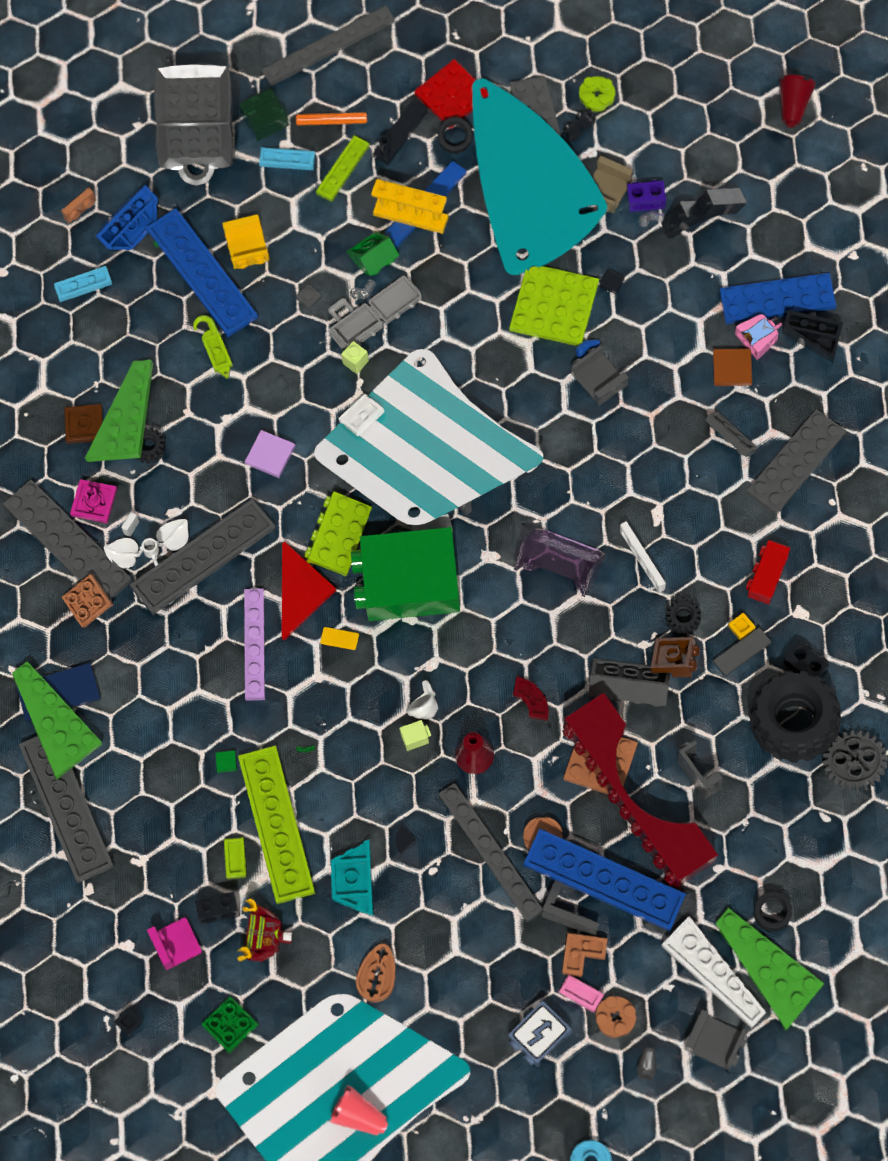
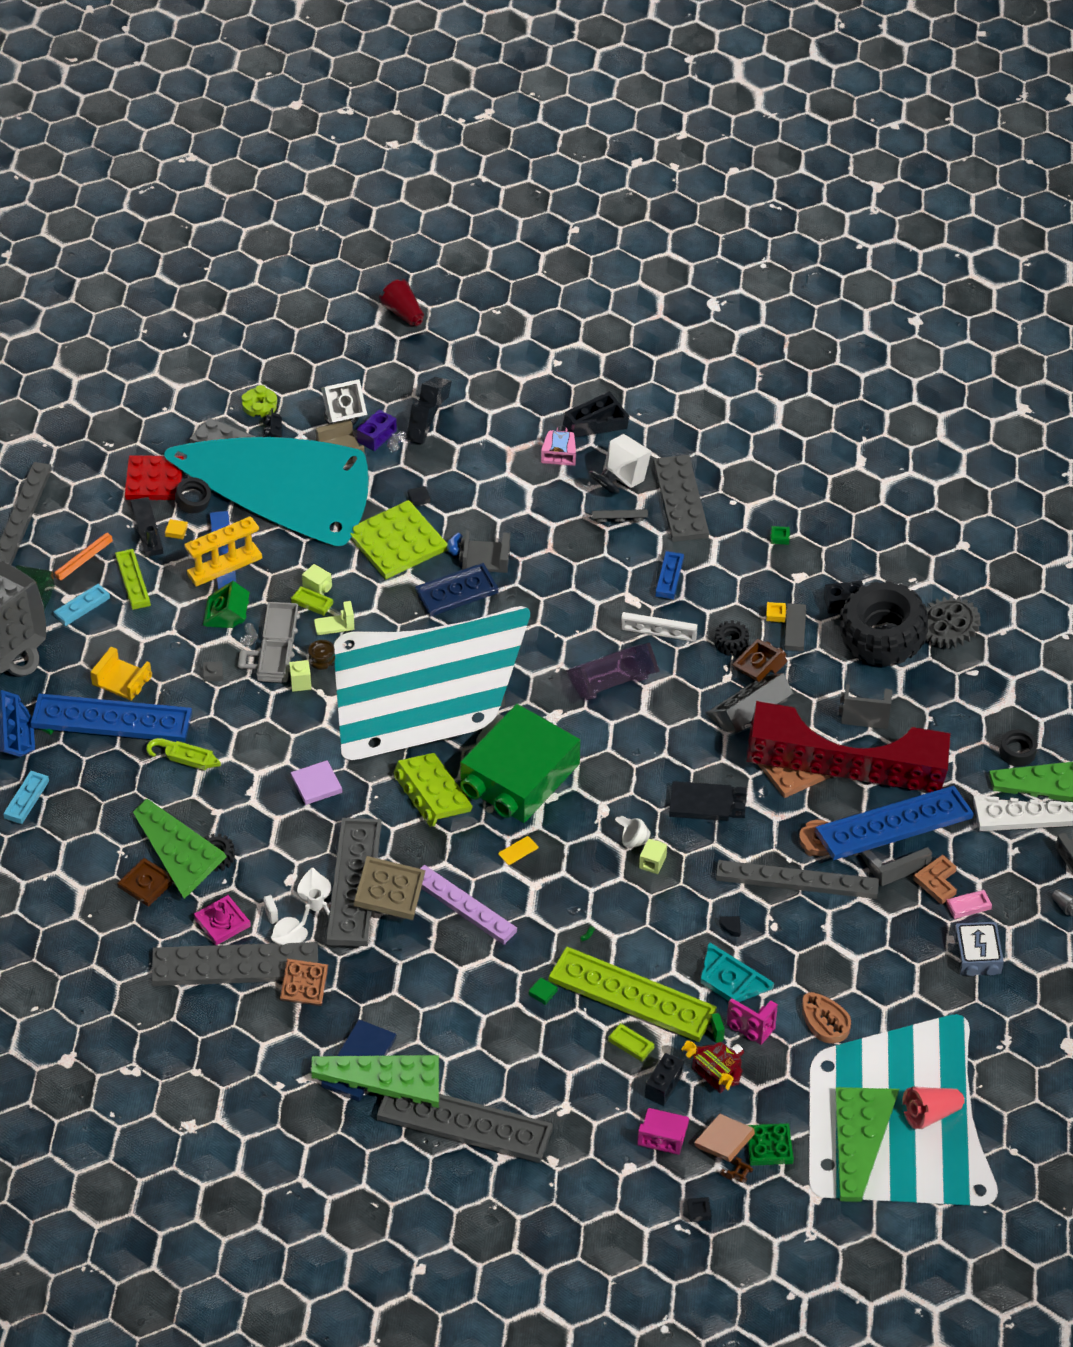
camera: 55 degrees left, 20 degrees down
(187, 1020) = (734, 1175): none -> reddish brown piece
(202, 990) = (724, 1137): none -> nougat tile
(211, 586) = (389, 888): none -> dark tan plate
(297, 907) = (717, 1027): none -> green tile
(298, 1077) = (861, 1126): none -> bright green wing
(302, 590) = (451, 843): red tile -> none
(325, 936) = (753, 1025): none -> dark pink bracket
(361, 415) = (352, 705): white plate -> none
(390, 353) = (321, 654): none -> dark brown wheel
(417, 153) = (176, 529): none -> yellow tile
(430, 336) = (338, 623): none -> yellowish green bracket
(438, 301) = (312, 600): none -> lime tile
(456, 288) = (317, 579): none -> yellowish green brick
(474, 754) = (707, 827): dark red cone -> none
(504, 728) = (707, 801): none -> black tile
(532, 697) = (701, 769): dark red tile -> none
(544, 387) = (456, 589): none -> dark blue tile
(626, 1013) = (1009, 887): nougat plate -> none
(636, 153) = (343, 402): none -> white piece
(704, 520) = (669, 575): none -> blue plate
(732, 367) = (567, 478): dark orange tile -> none
(768, 572) = (750, 568): red brick -> none
(776, 297) = (545, 415): blue plate -> none
(779, 395) = (625, 462): none -> white piece
(829, 564) = (780, 535): none -> green tile

